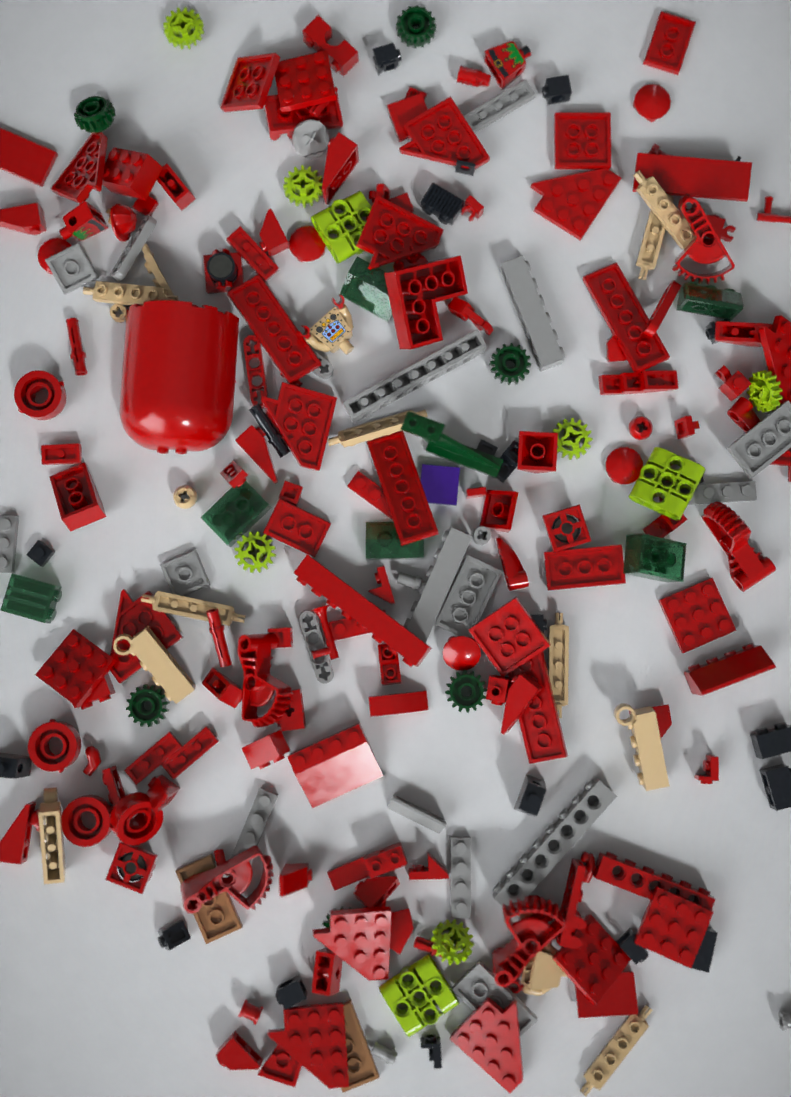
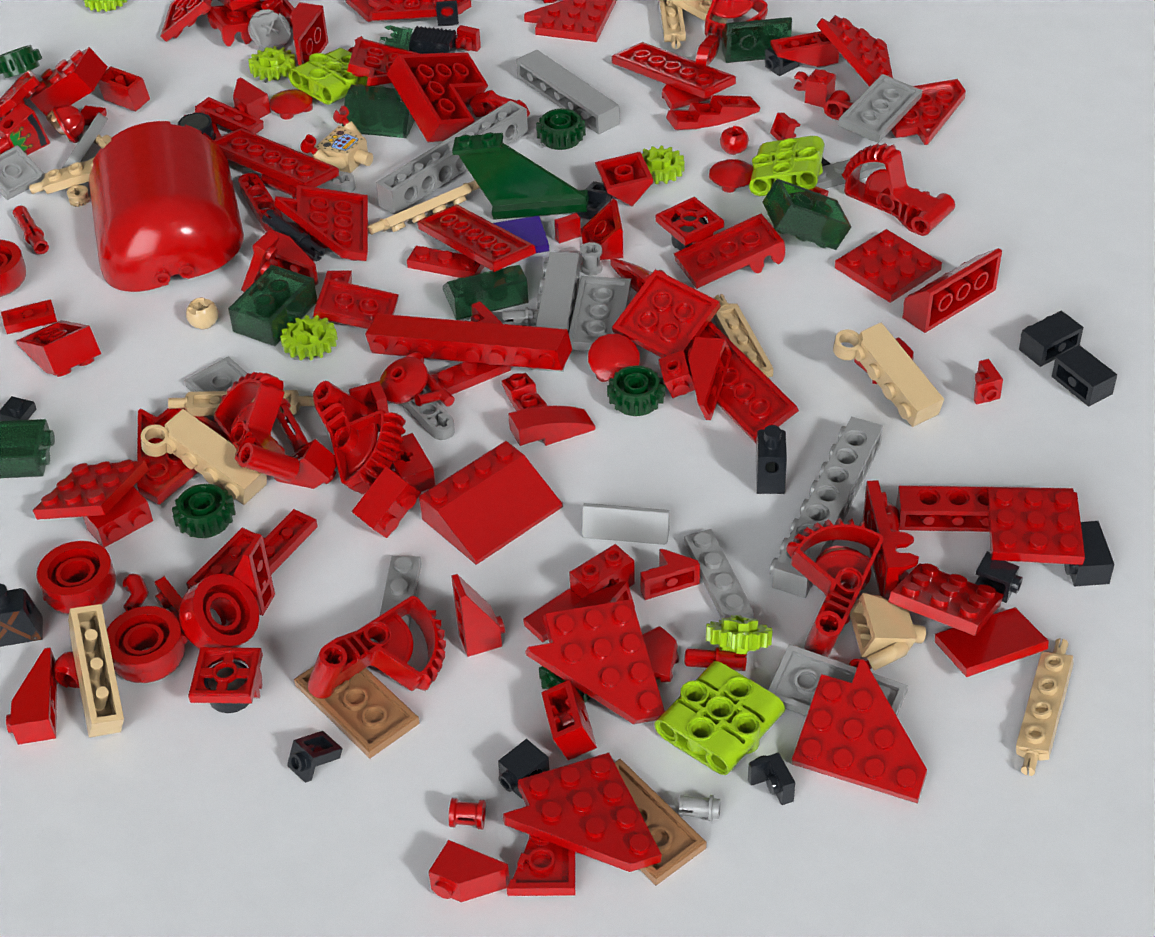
camera: 20 degrees left, 40 degrees down
(189, 655) = (250, 425): none -> red arm
(315, 627) = (404, 379): none -> red dish
(411, 195) = (400, 37): none -> clear green hinge
(764, 391) = (853, 75): lime gear -> none

